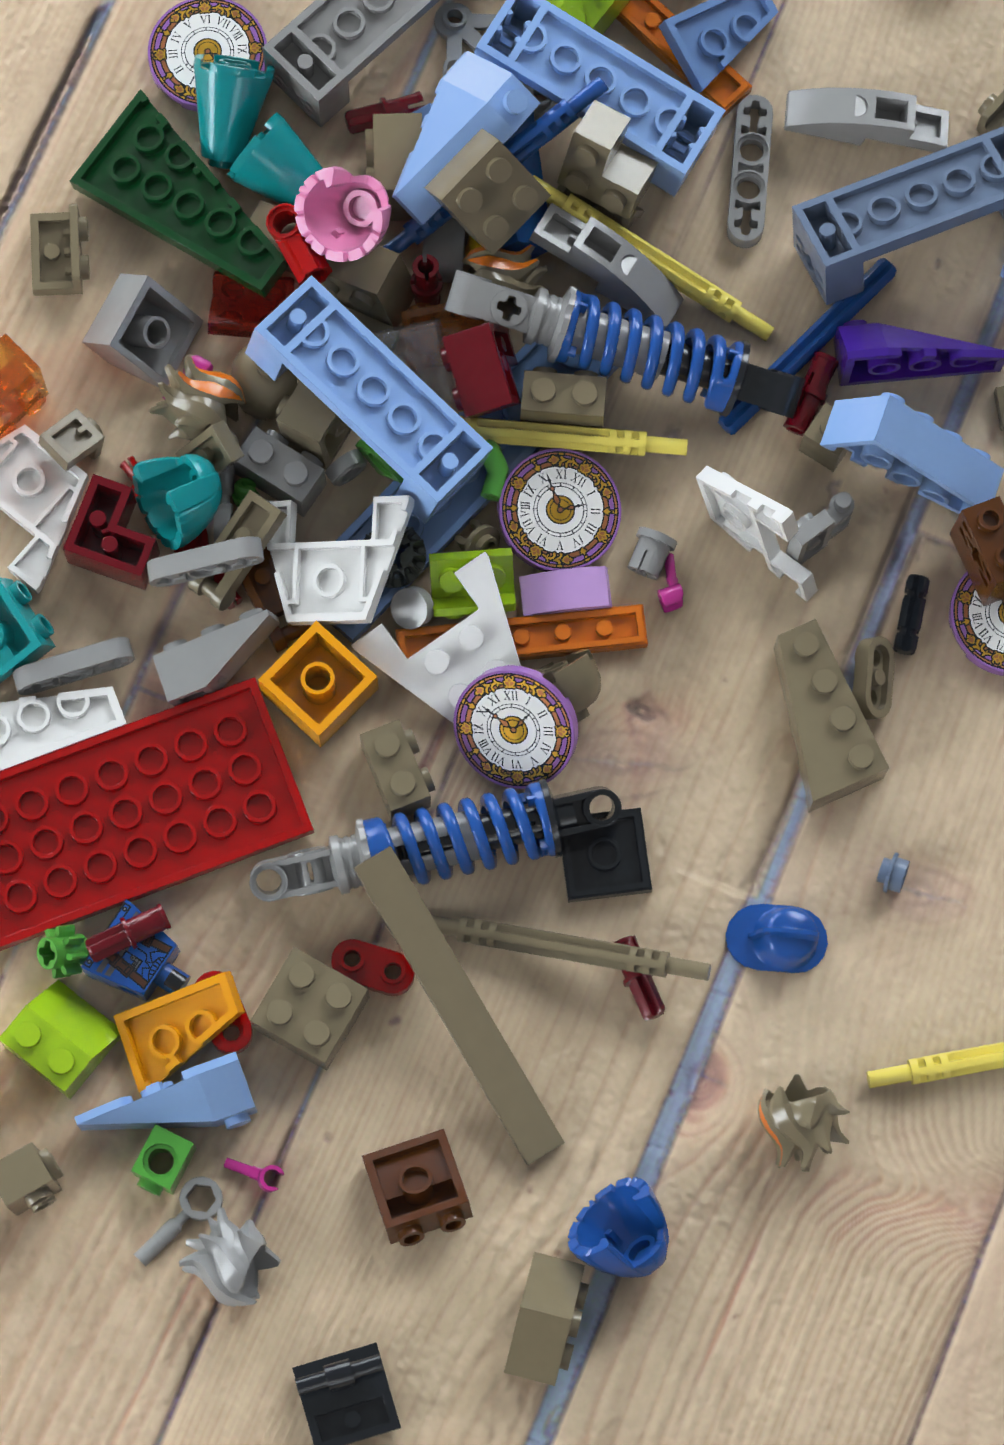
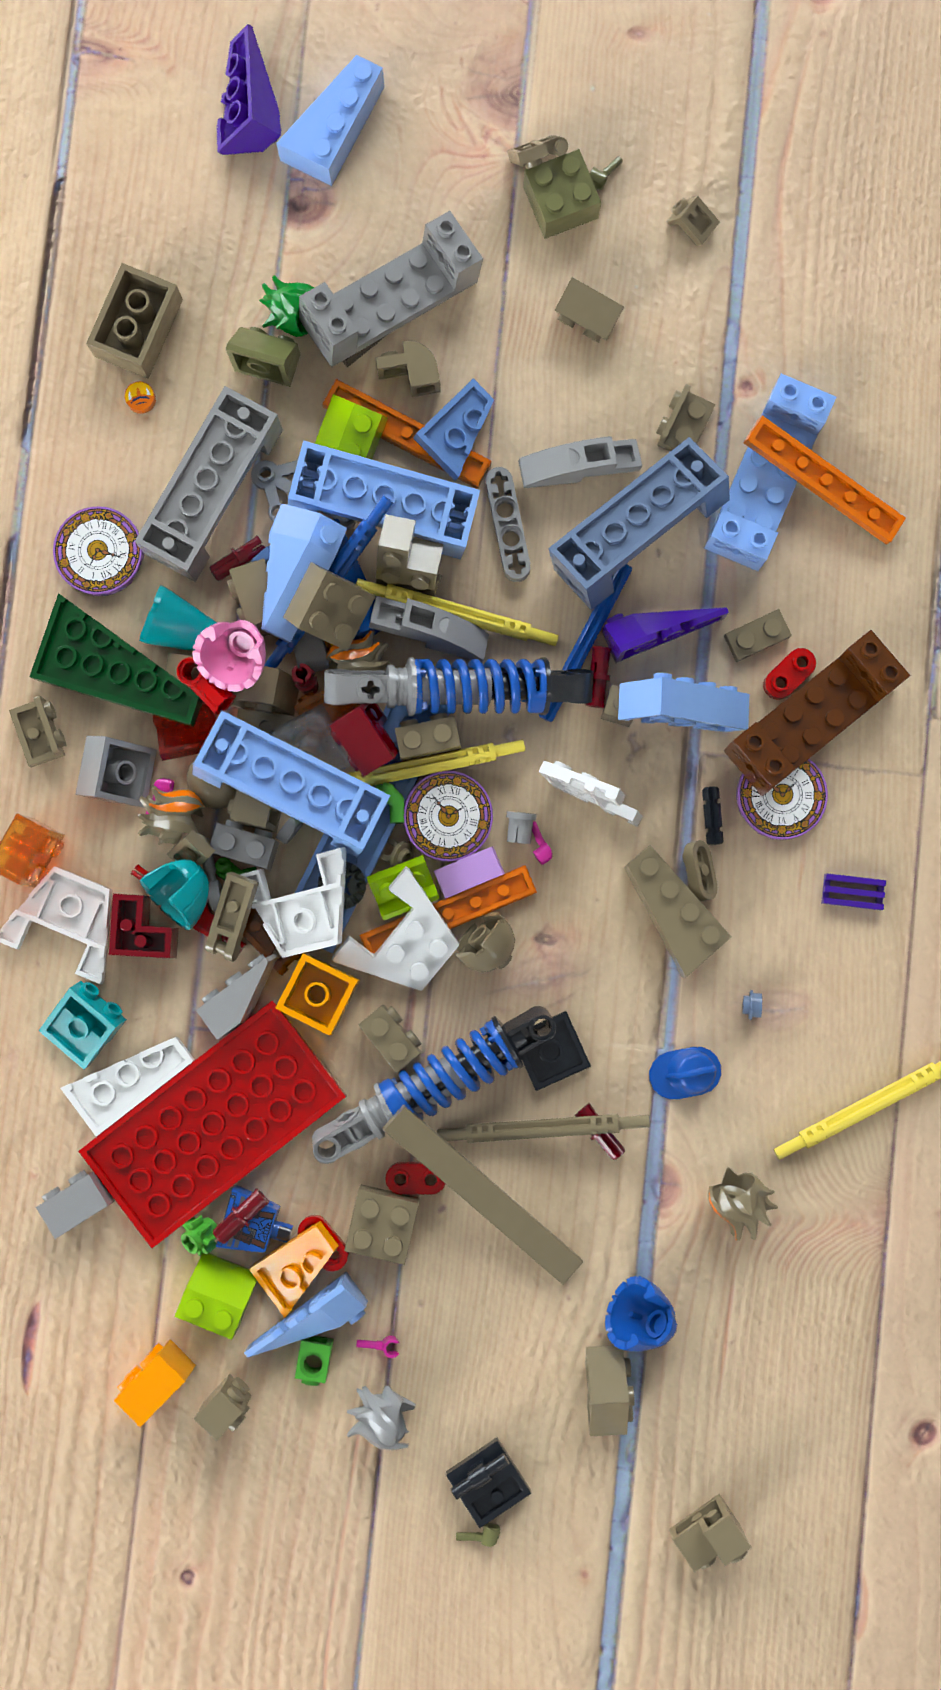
camera: 15 degrees left, 10 degrees up
(73, 439) = (91, 869): dark tan bracket -> none
(73, 666) = (143, 1029): light grey beam -> none
(174, 1225) = (335, 1398): light grey piece -> none
(205, 561) = (211, 935): light grey beam -> none
(228, 104) = (124, 586): teal cone -> none
(412, 607) = (366, 917): light grey tile -> none
(418, 1188) = (493, 1325): reddish brown plate -> none
(515, 726) = (464, 985): tile -> none
(819, 529) = (629, 782): light grey plate -> none

